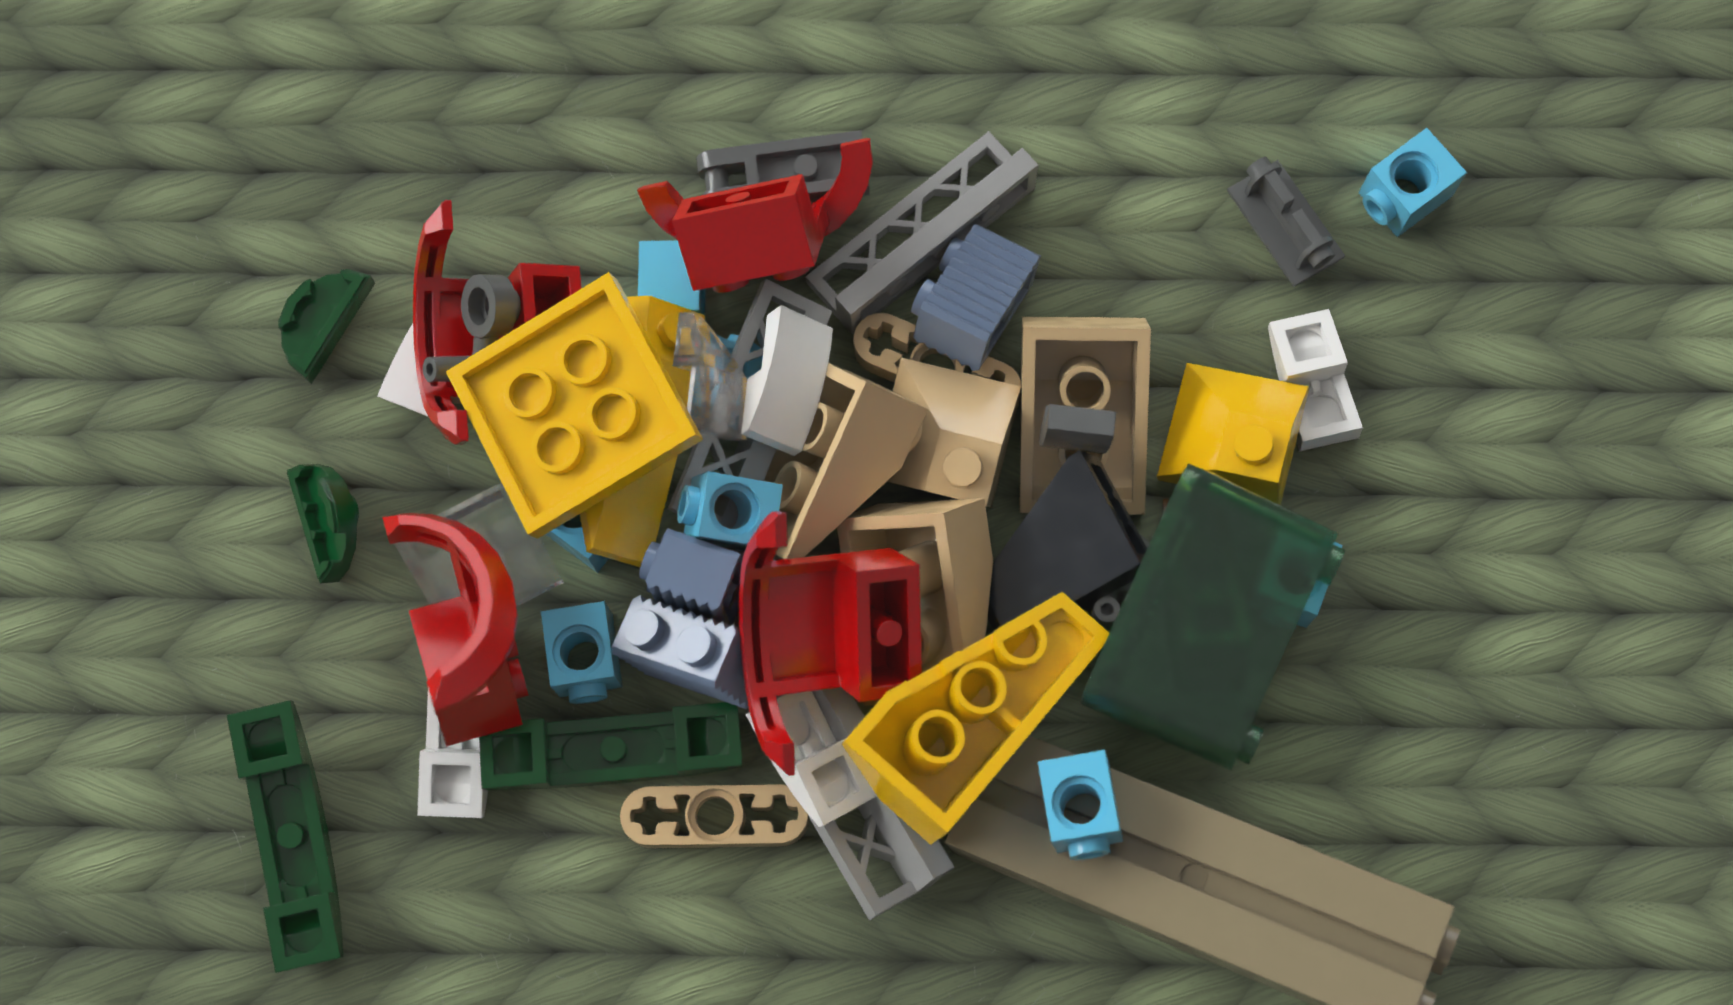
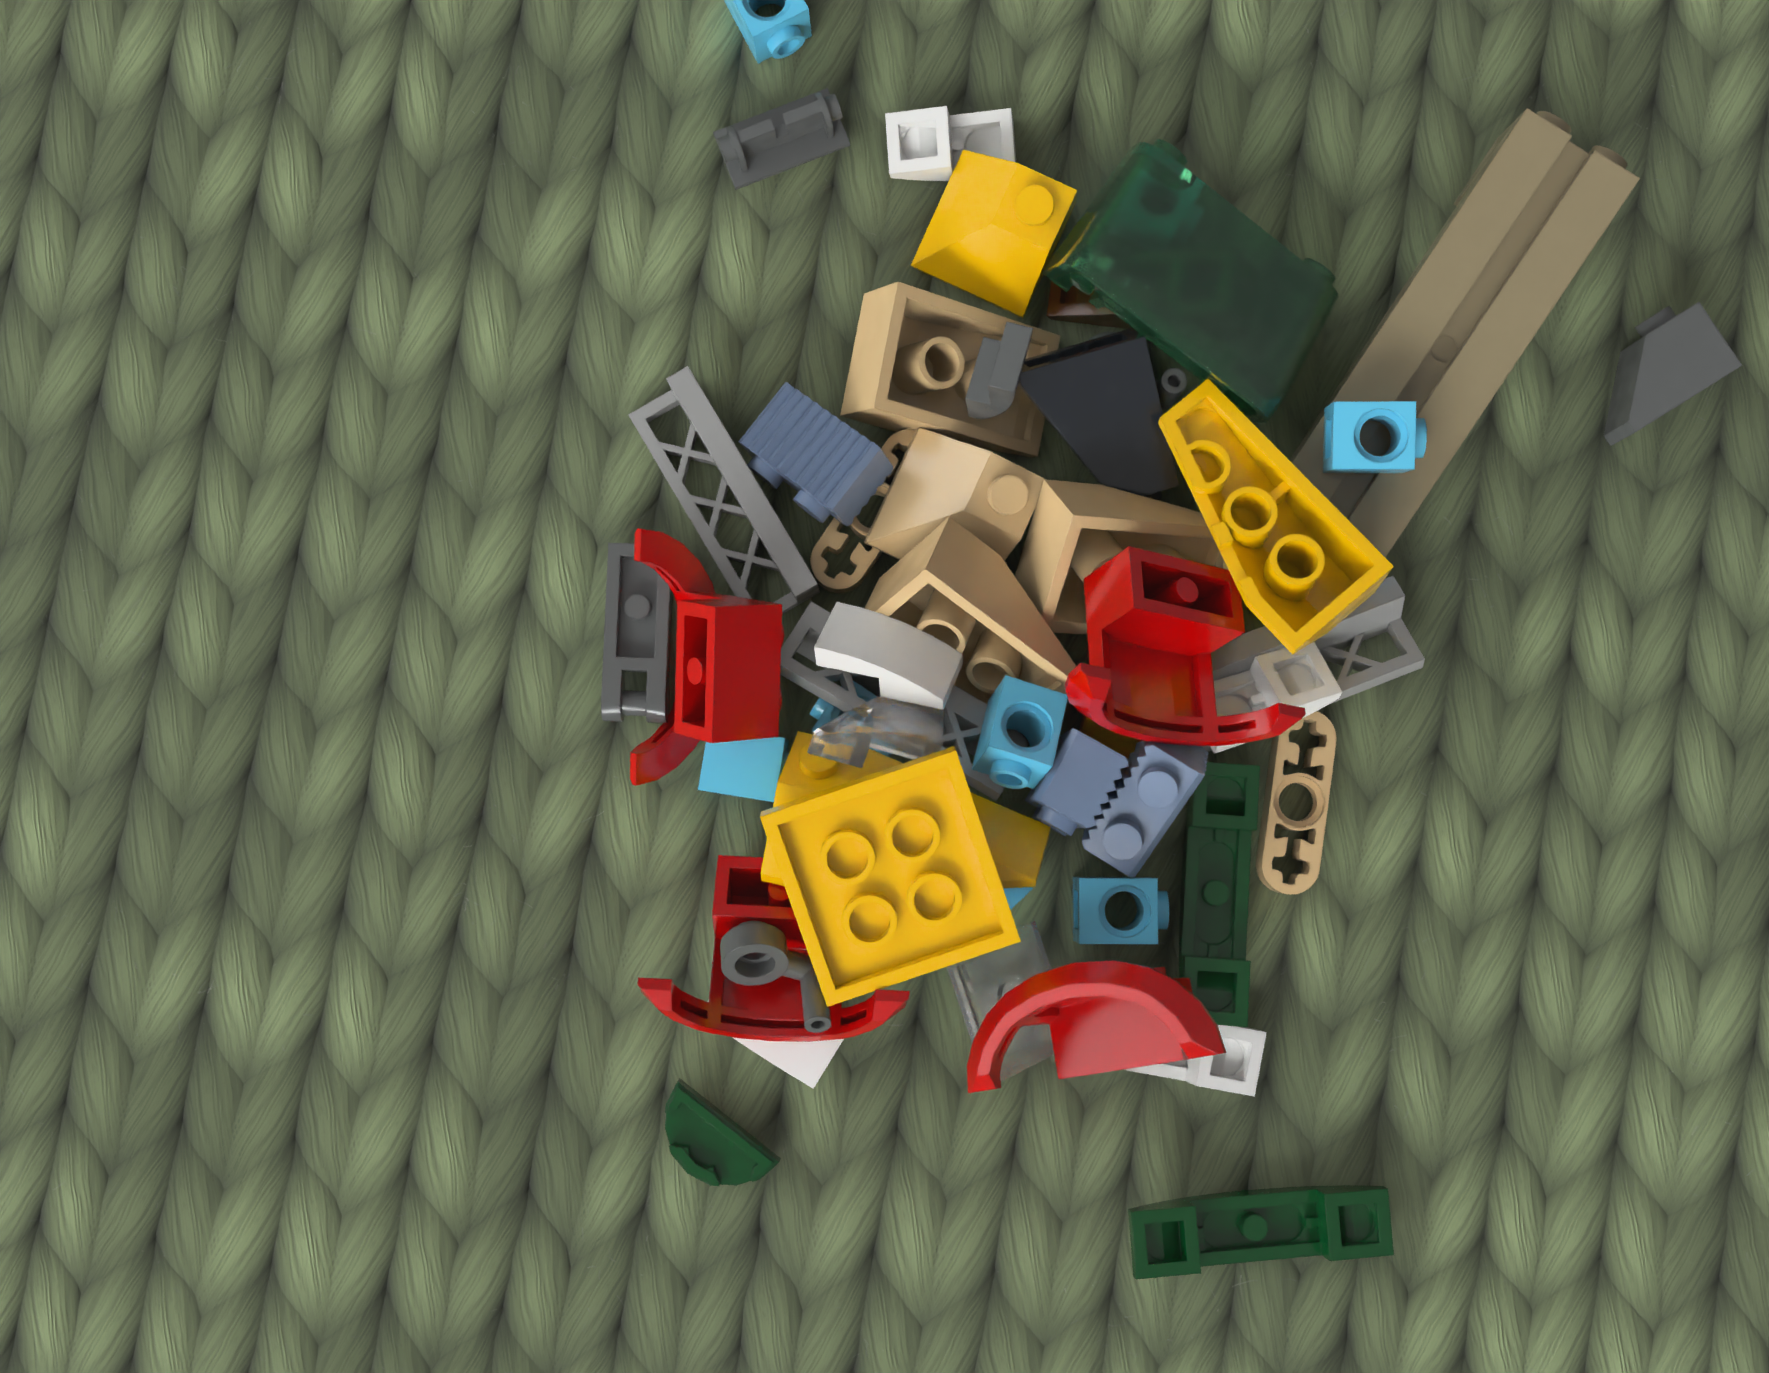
camera: 80 degrees left, 10 degrees up
(327, 517) = (929, 1156): dark green plate -> none

